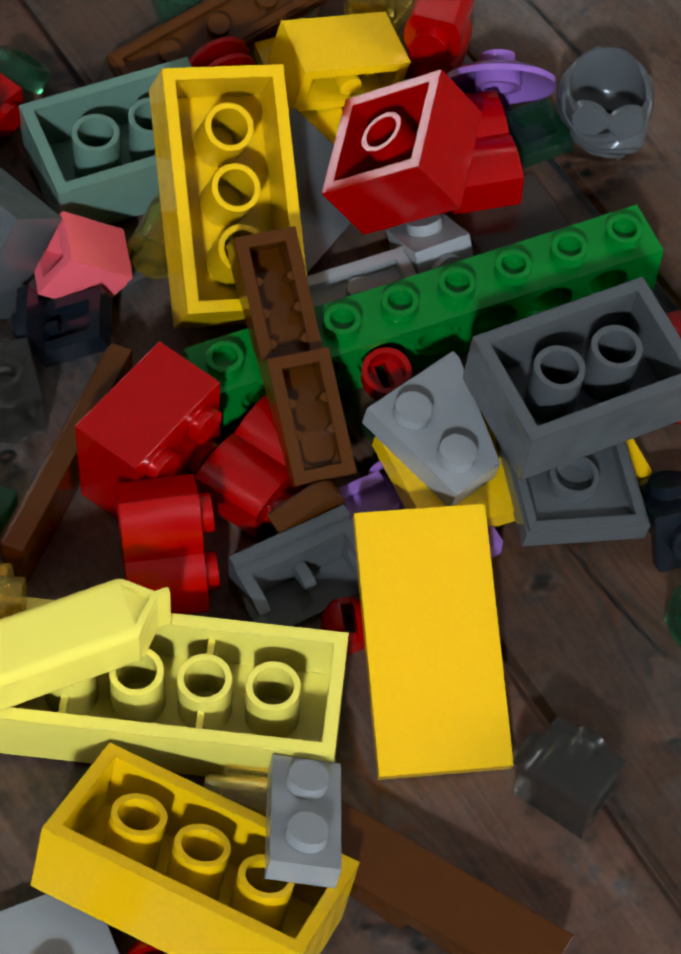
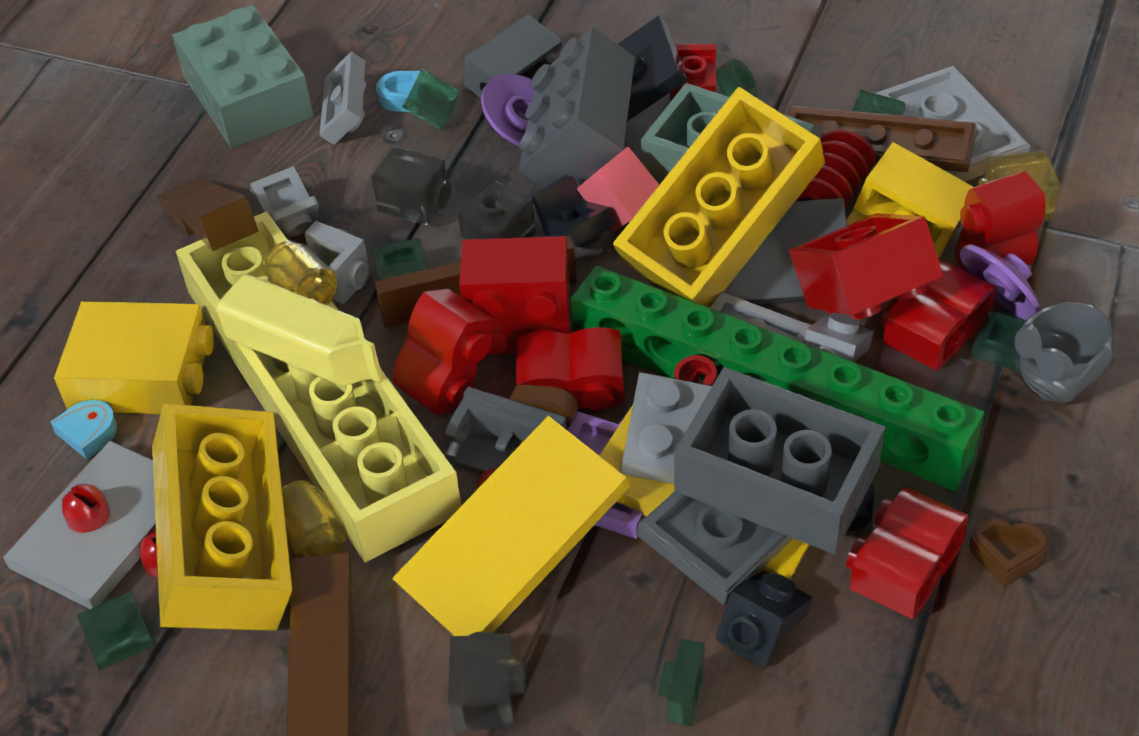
camera: 60 degrees right, 10 degrees down
(291, 356) = (635, 309): reddish brown slope -> none
(303, 821) = (291, 537): light grey plate -> none

